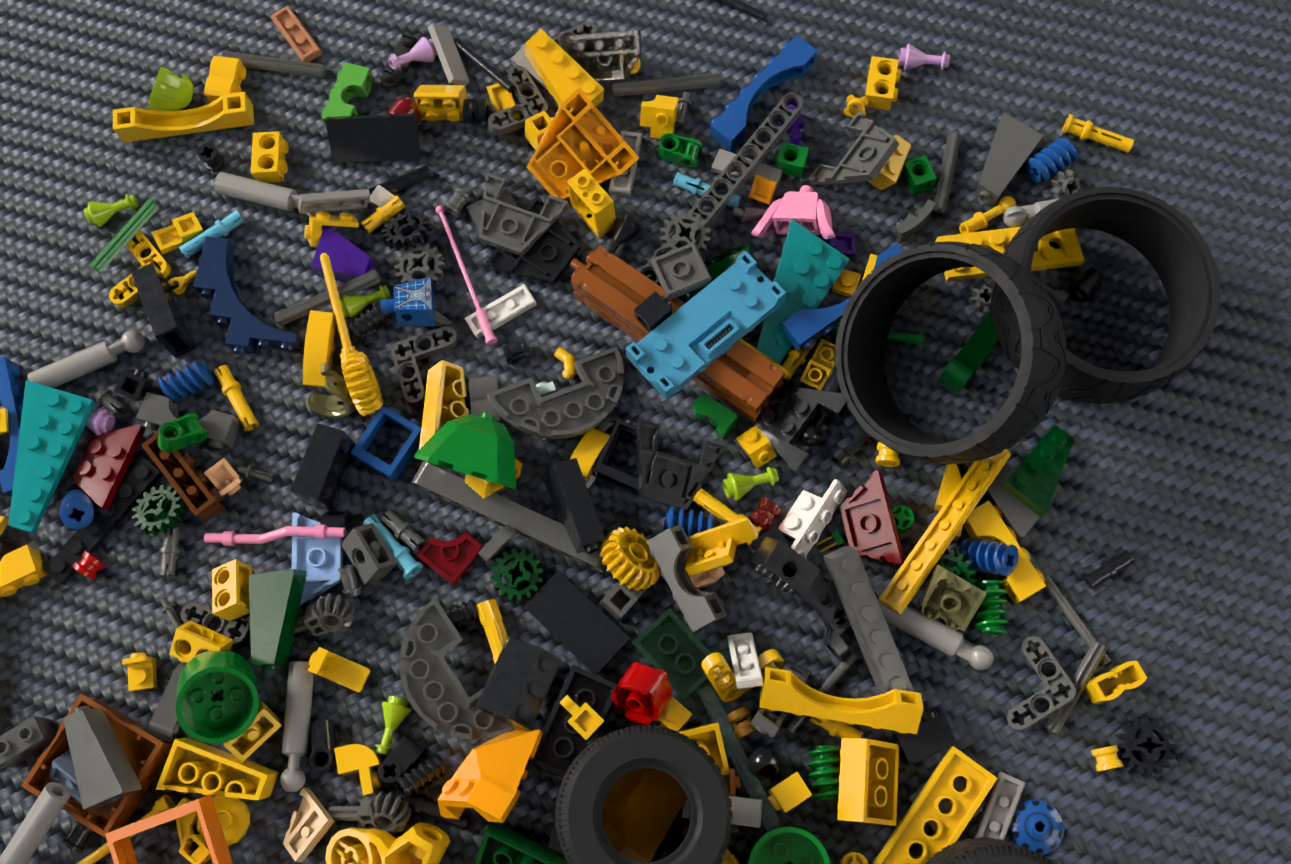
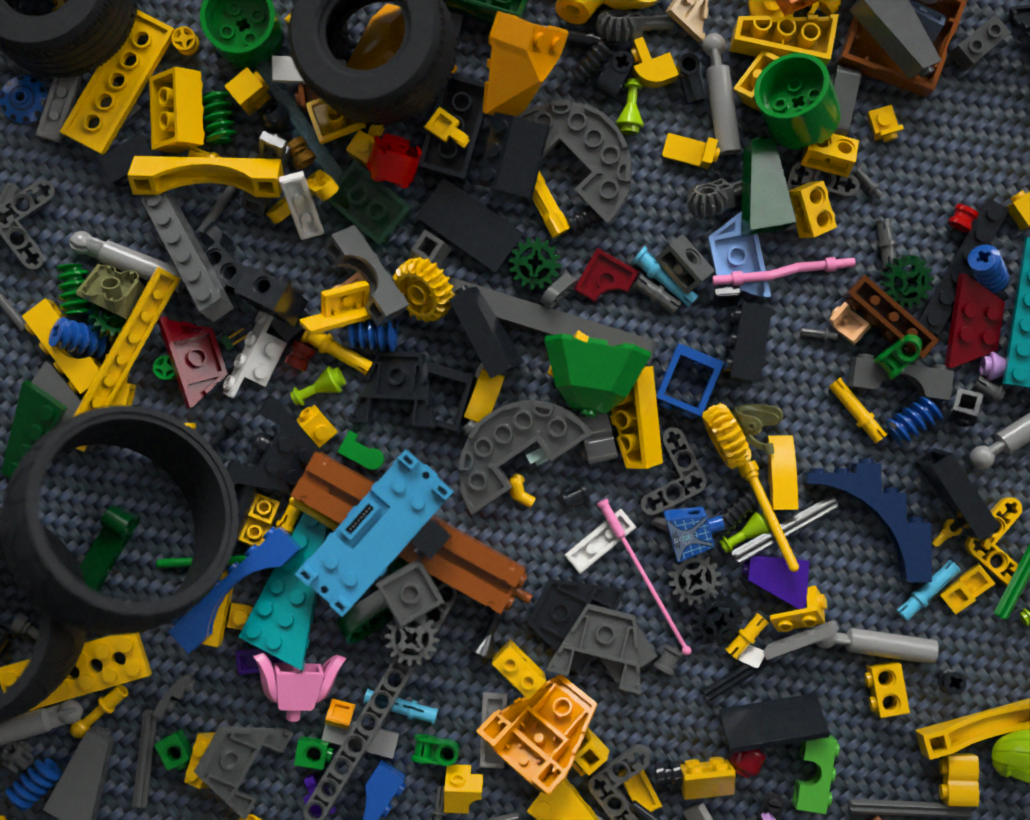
camera: 165 degrees right, 15 degrees up
(349, 581) = (696, 232): dark grey pin -> none
(747, 213) = (352, 685): dark grey bar -> none

